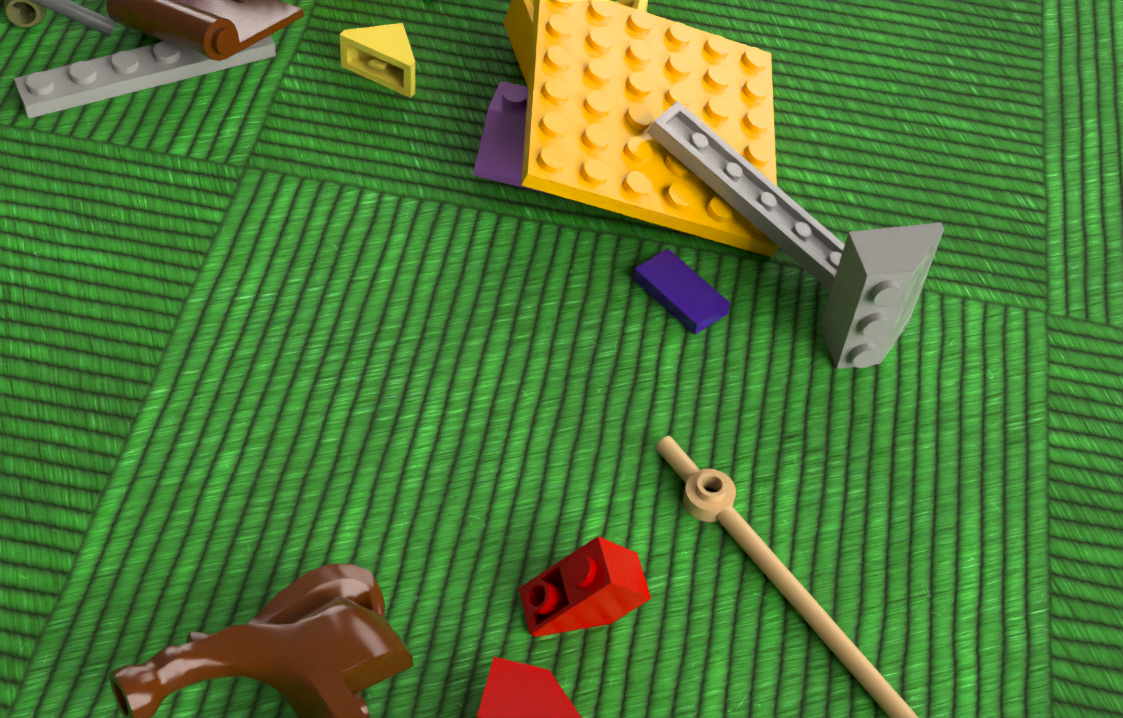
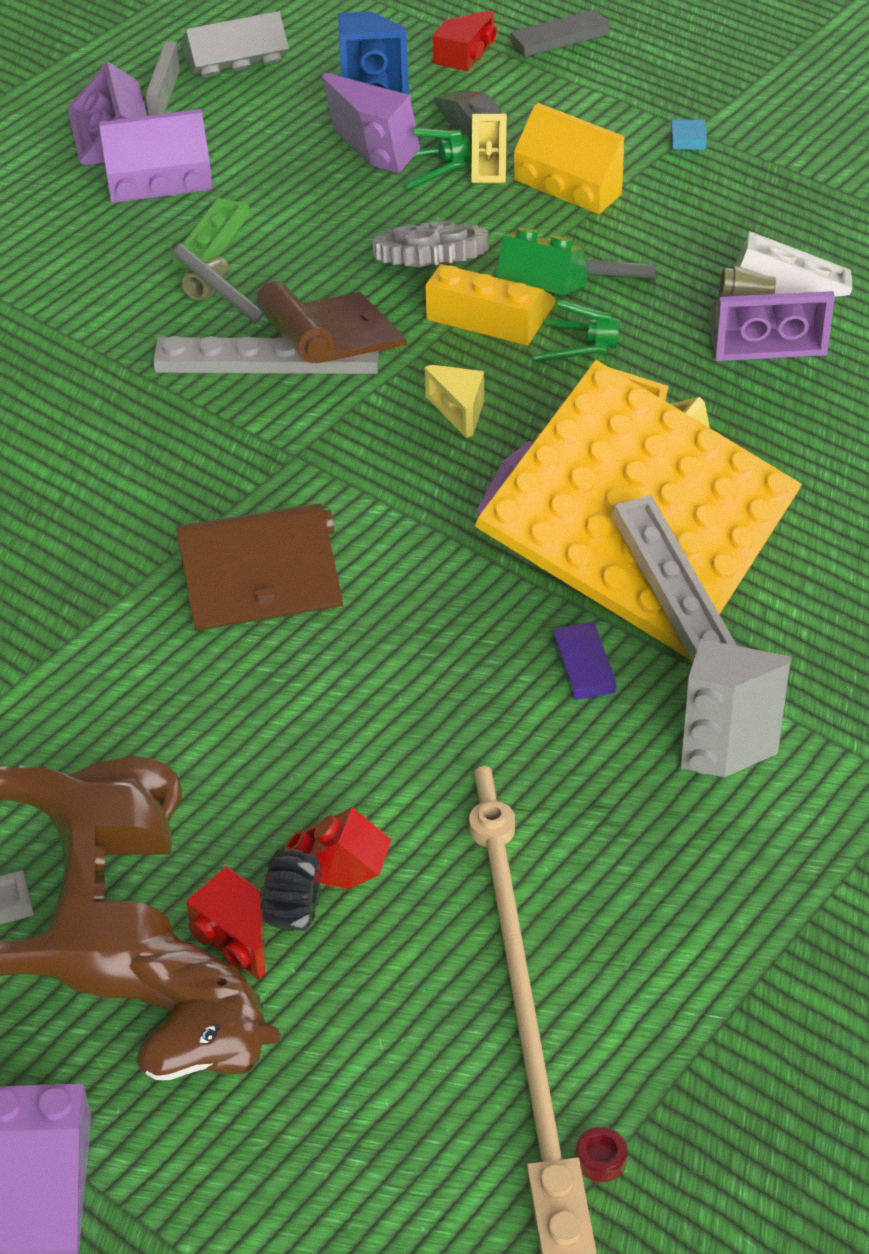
camera: 35 degrees right, 5 degrees down
(285, 289) = (259, 566): none -> reddish brown door
(578, 652) = (291, 890): none -> black gear

